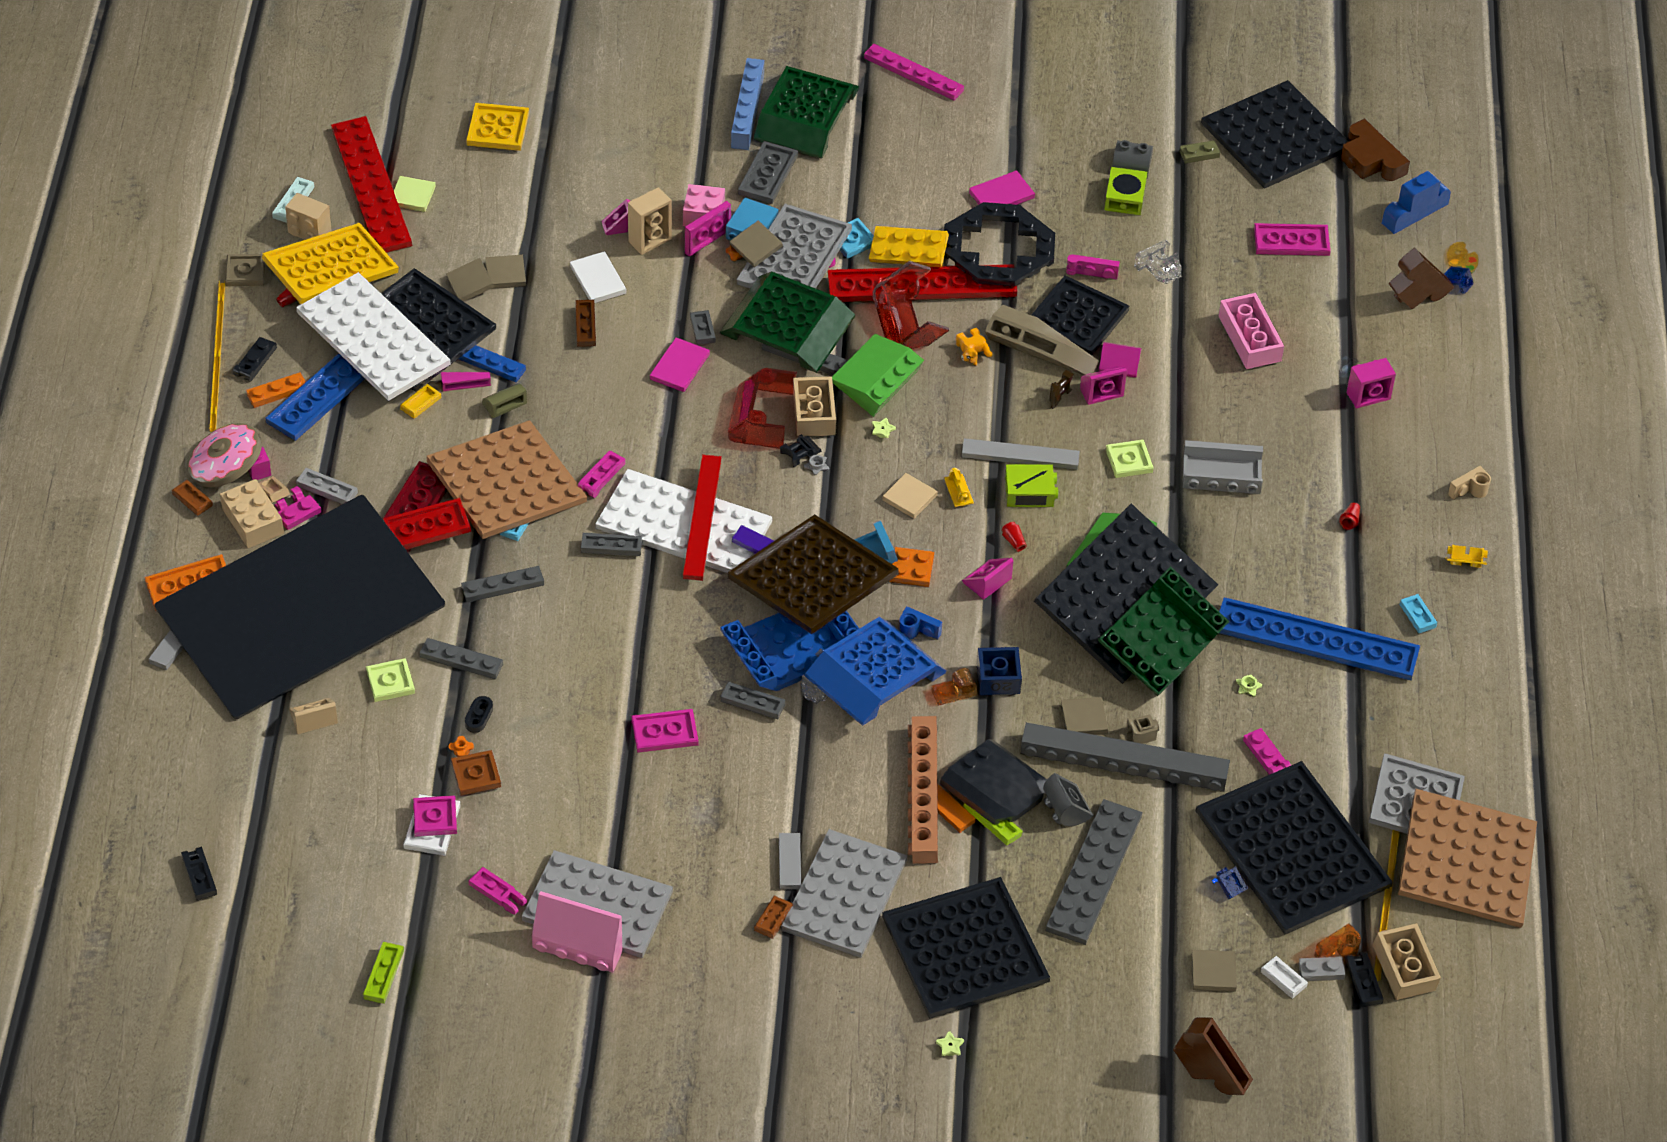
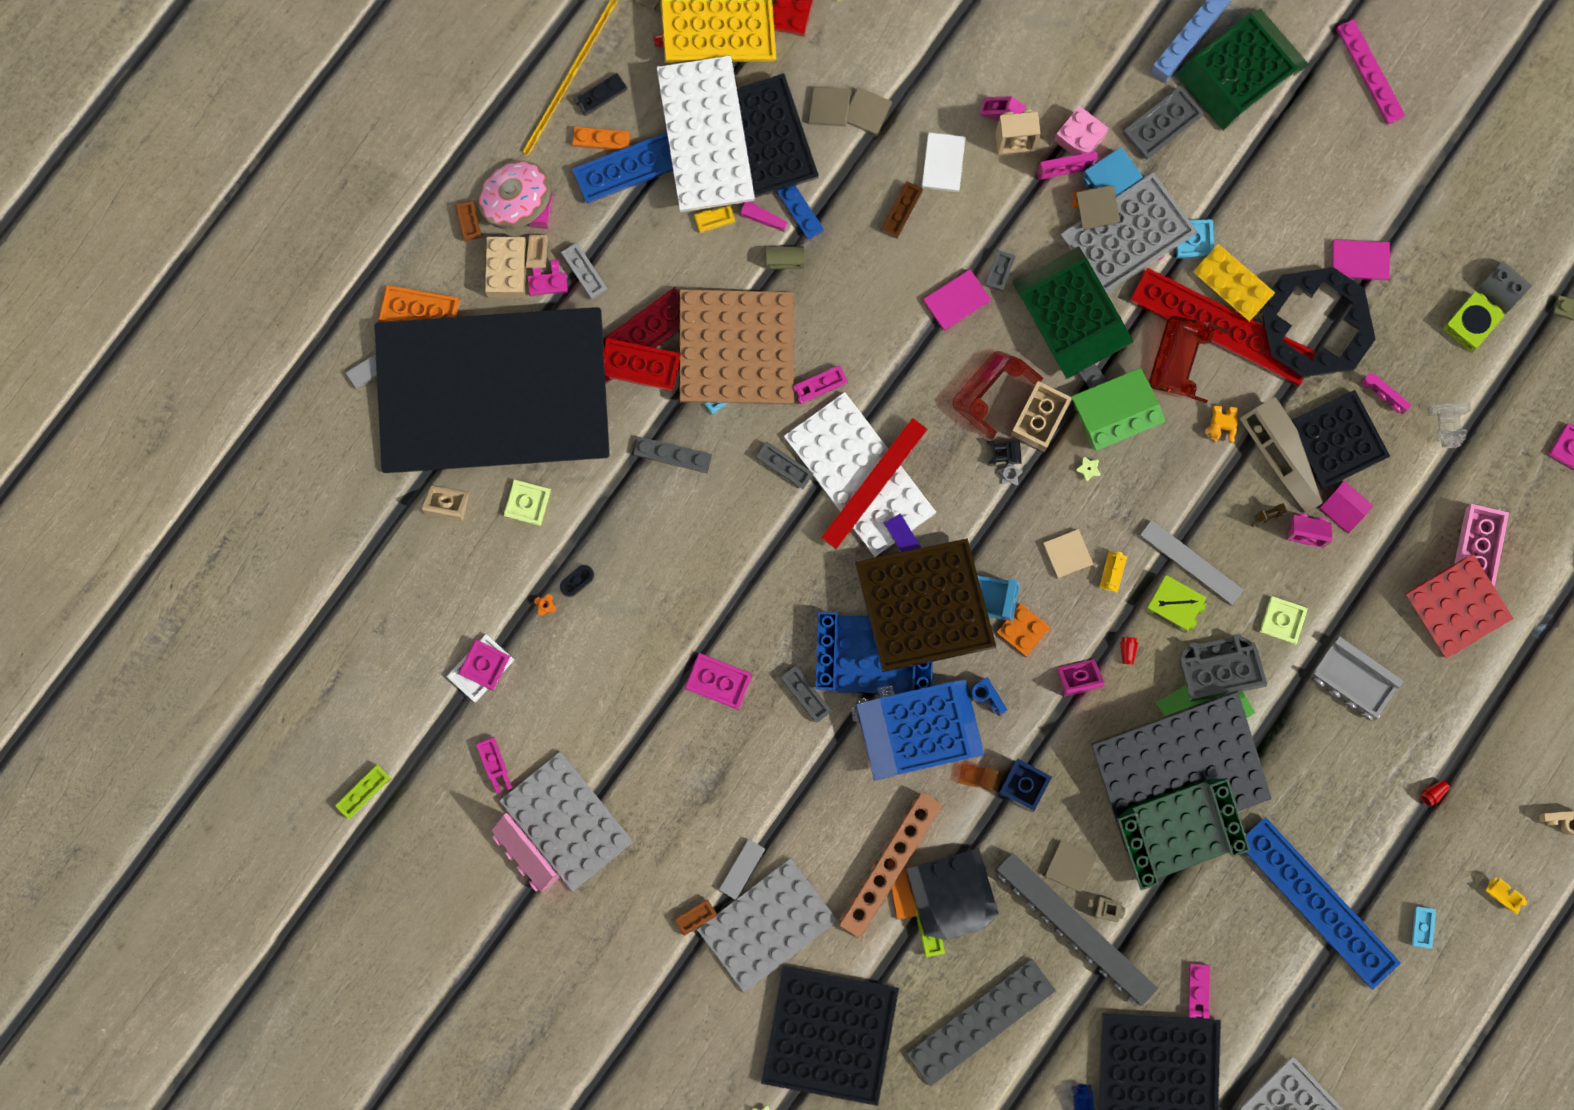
camera: 30 degrees right, 30 degrees up
(199, 873) = (273, 612): black plate -> none
(461, 658) = (596, 513): dark grey plate -> none
(476, 772) = (542, 638): dark orange plate -> none
(1066, 801) = (999, 947): dark grey brick -> none
(1102, 505) = (1221, 667): none -> dark grey plate
(1248, 680) = (1235, 913): yellowish green plate -> none
(1266, 374) = (1459, 605): none -> plate
(1371, 383) = (1548, 666): dark pink brick -> none

